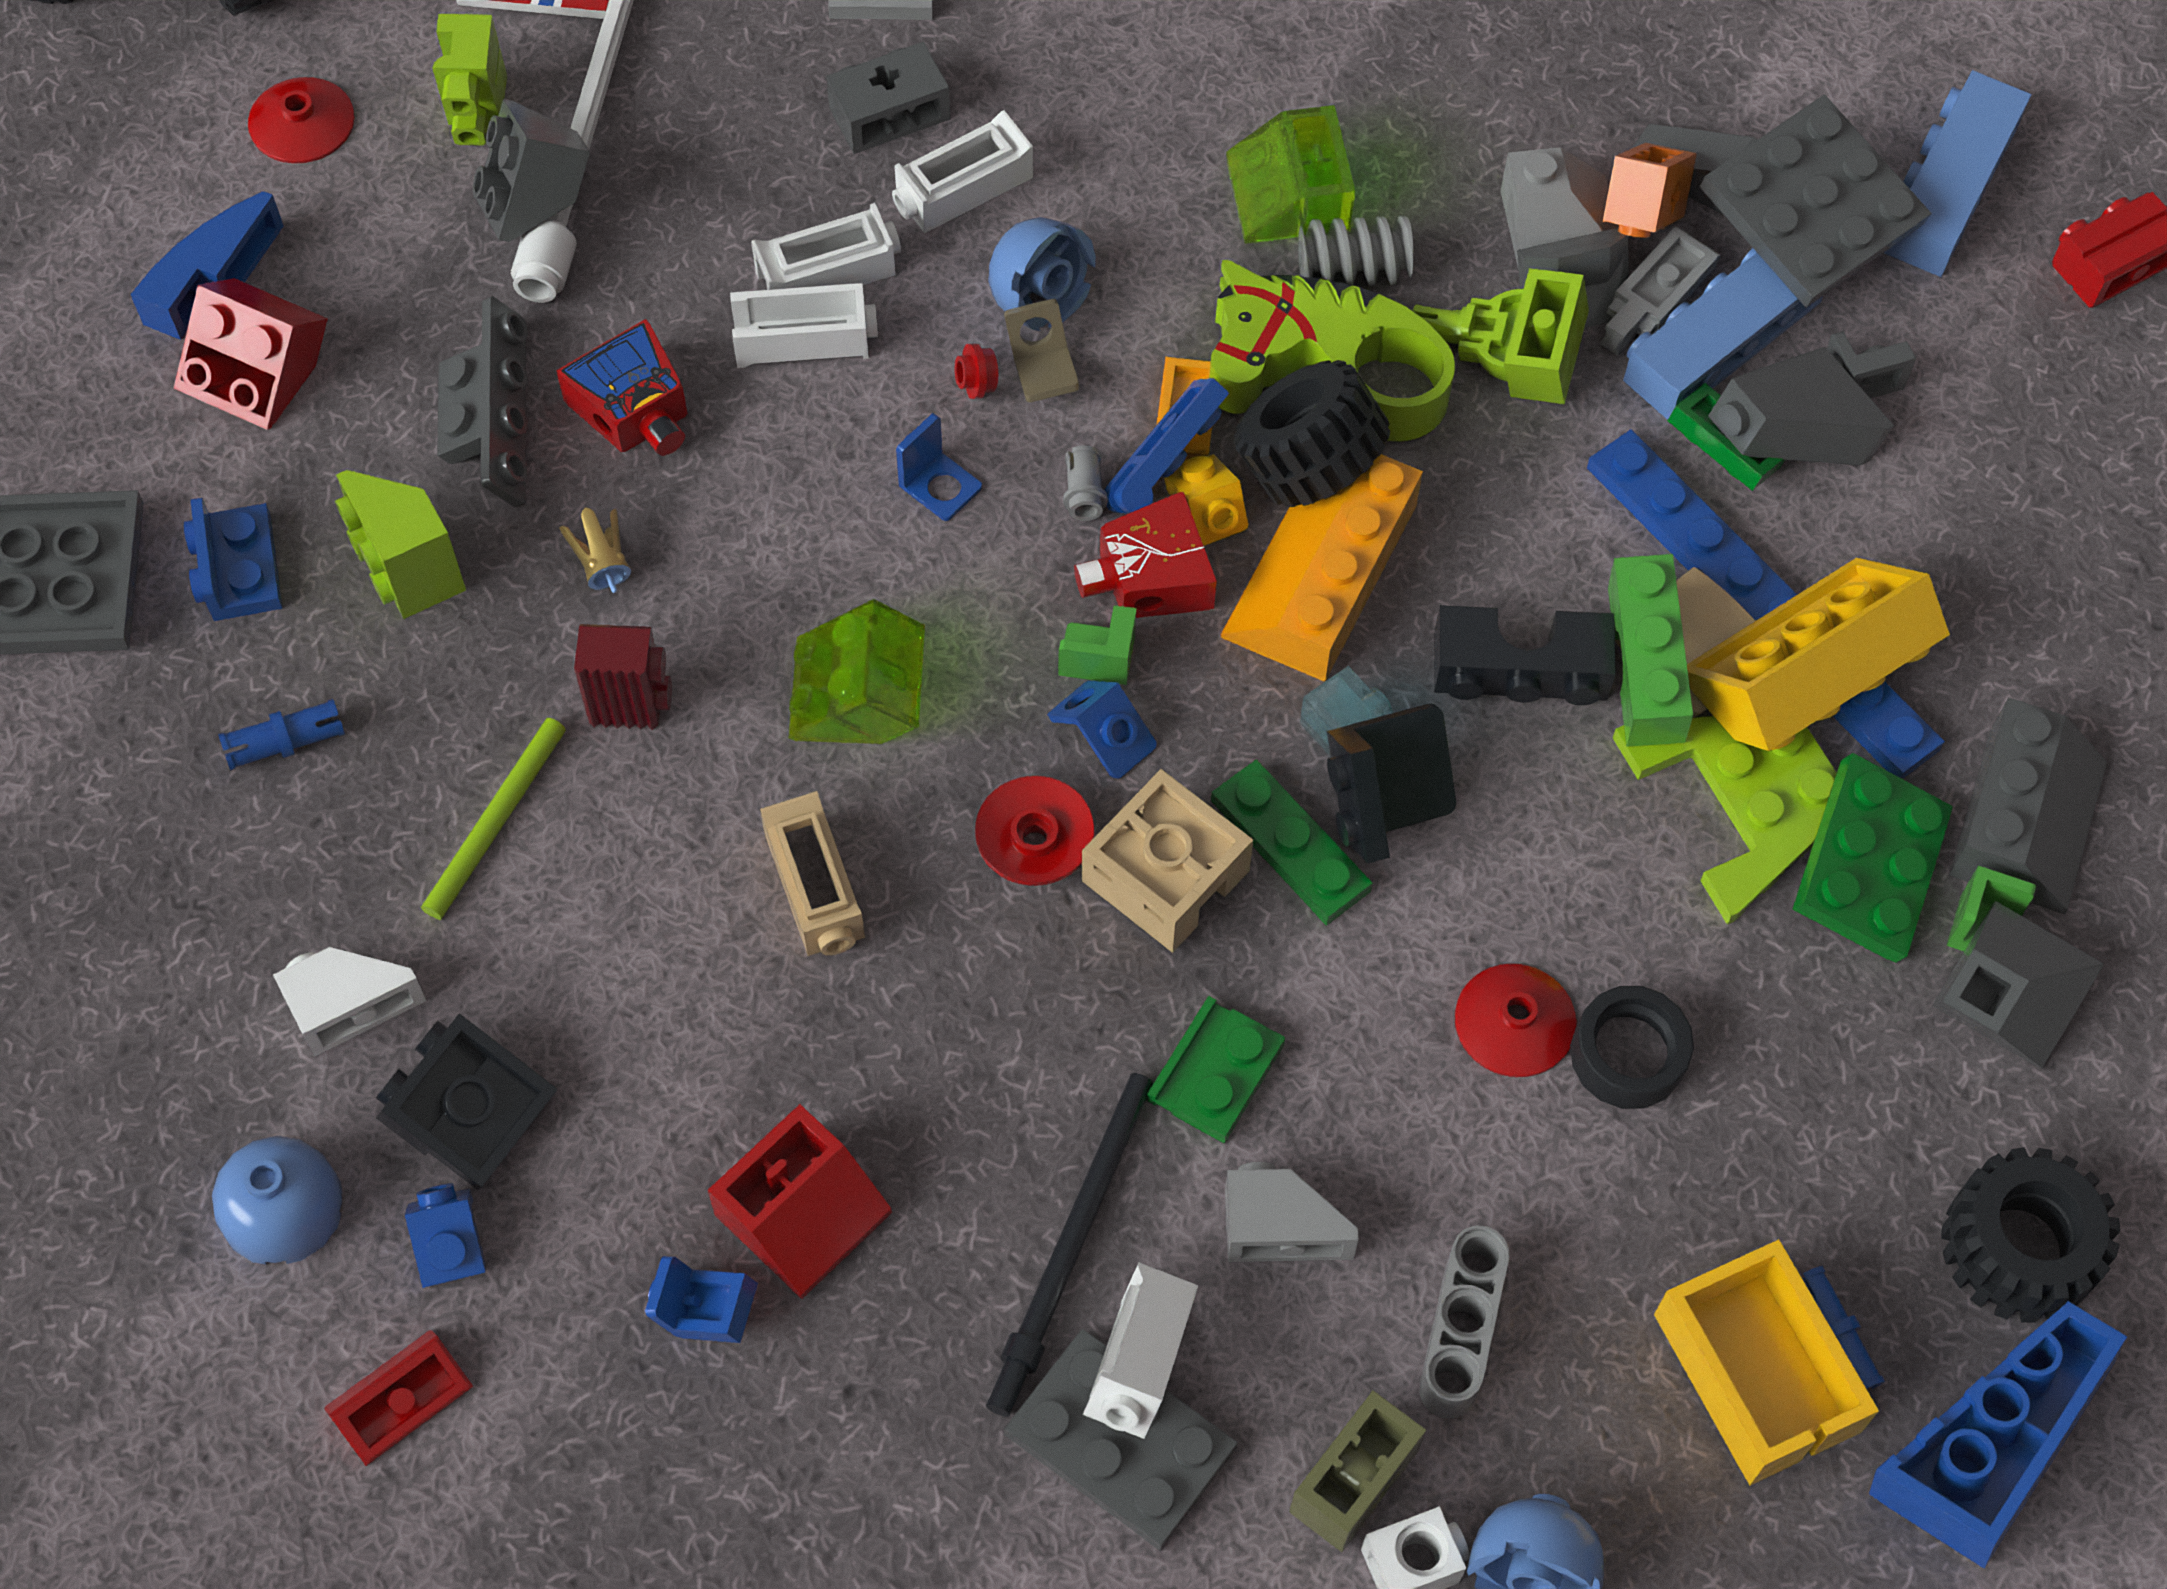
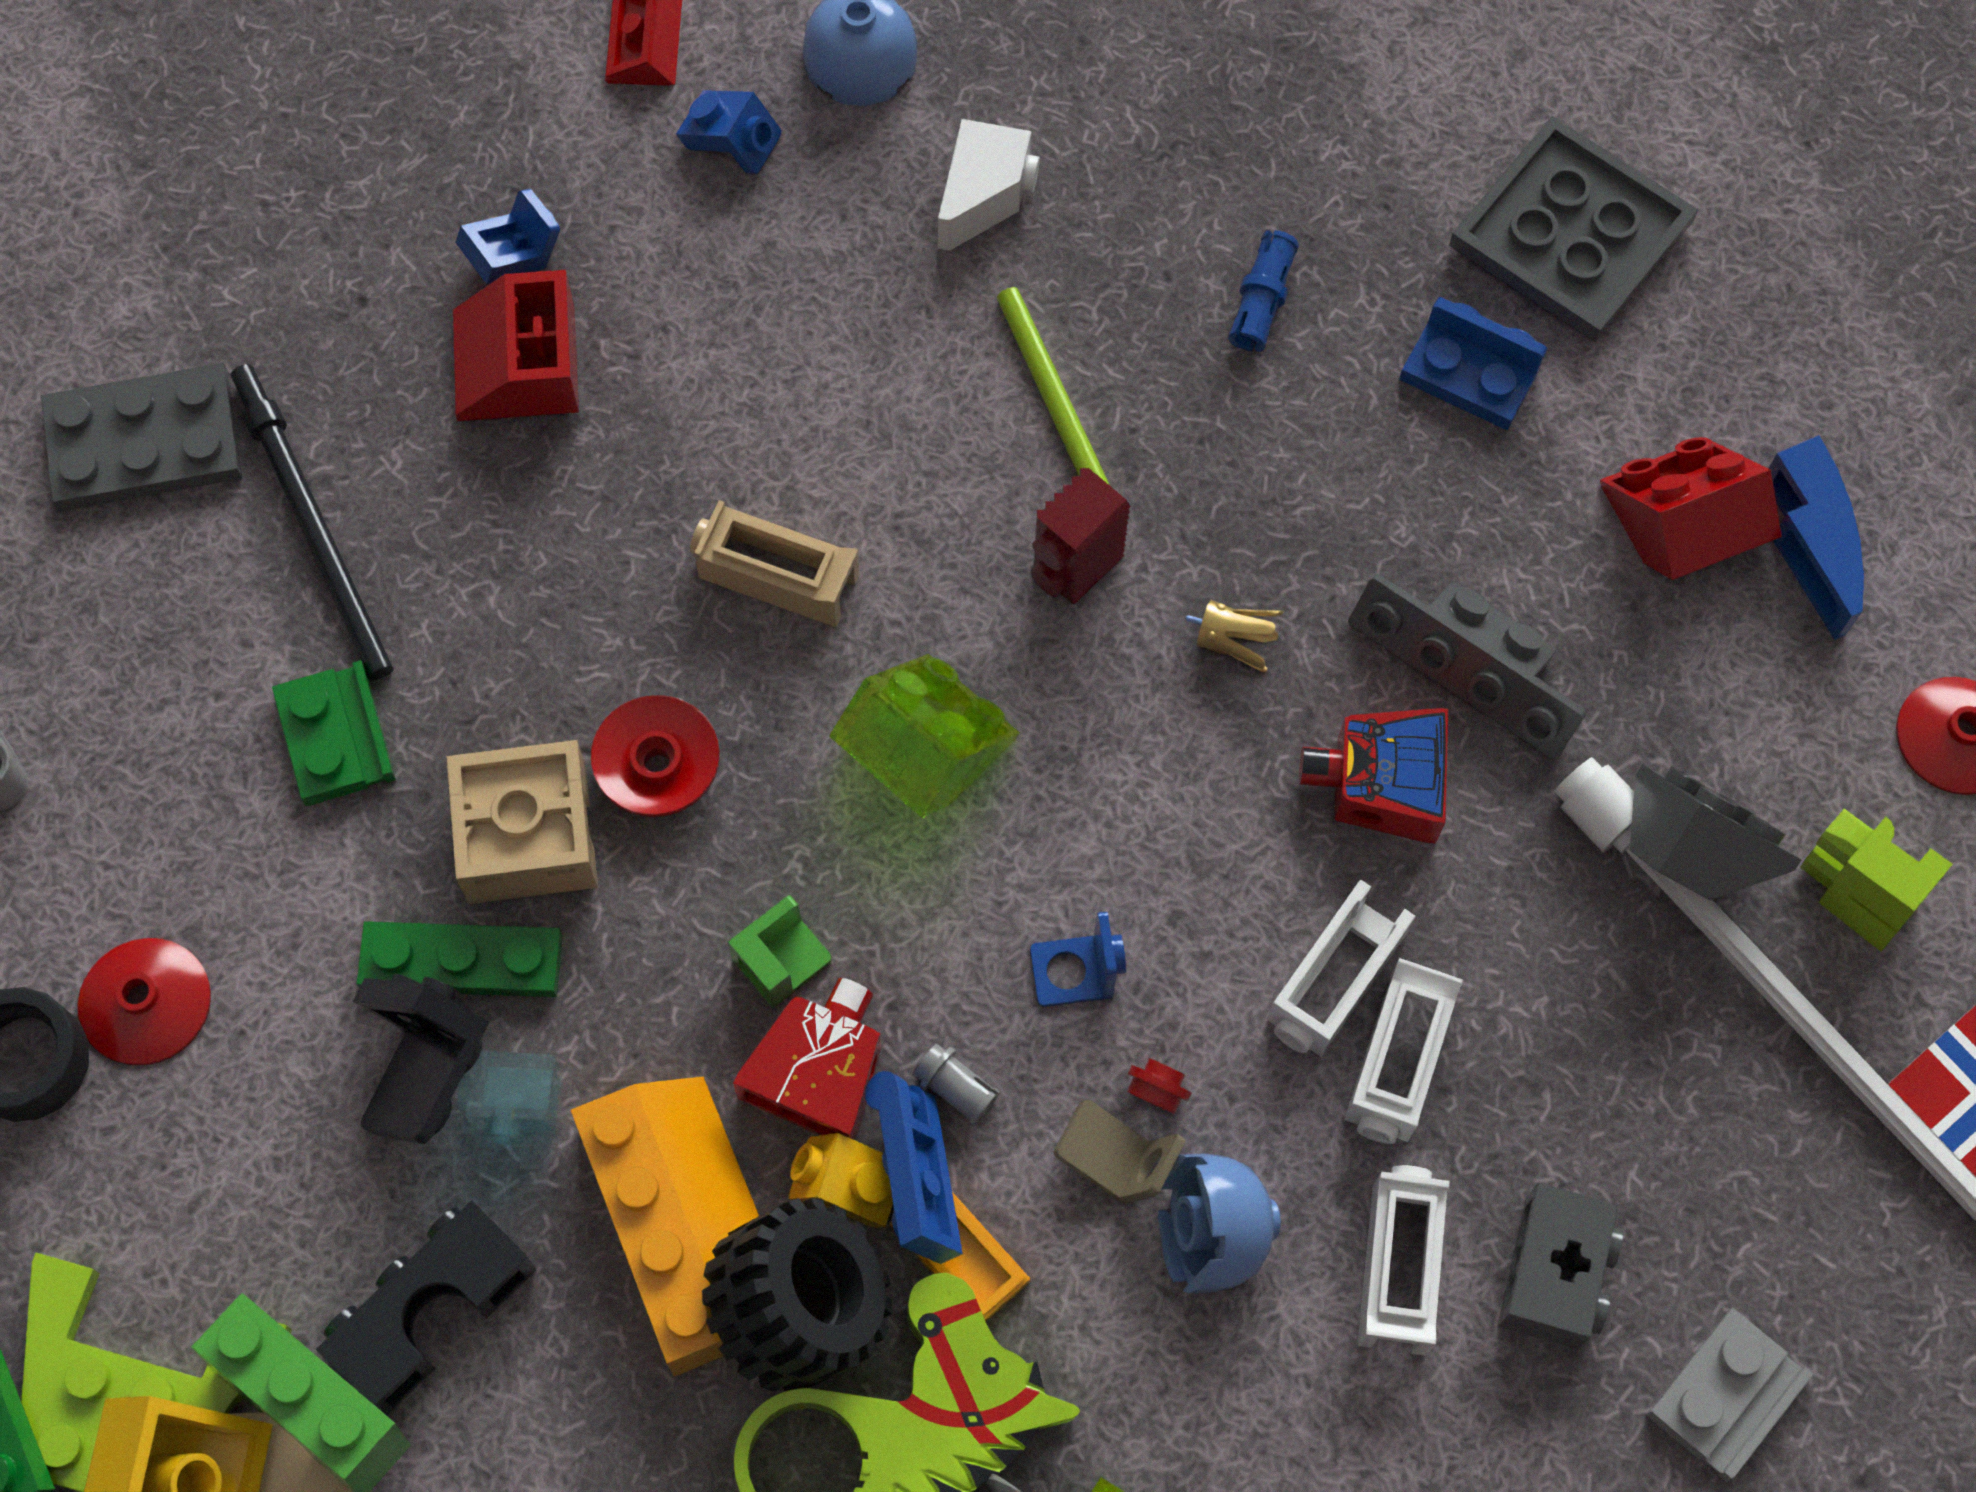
camera: 130 degrees right, 5 degrees up
(400, 541) = (1367, 465): lime slope -> none
(464, 1100) = (818, 199): black plate -> none
(1107, 724) = (700, 893): blue bracket -> none
(1141, 1351) = (161, 466): white window -> none
(1282, 1218) = (165, 665): light grey slope -> none

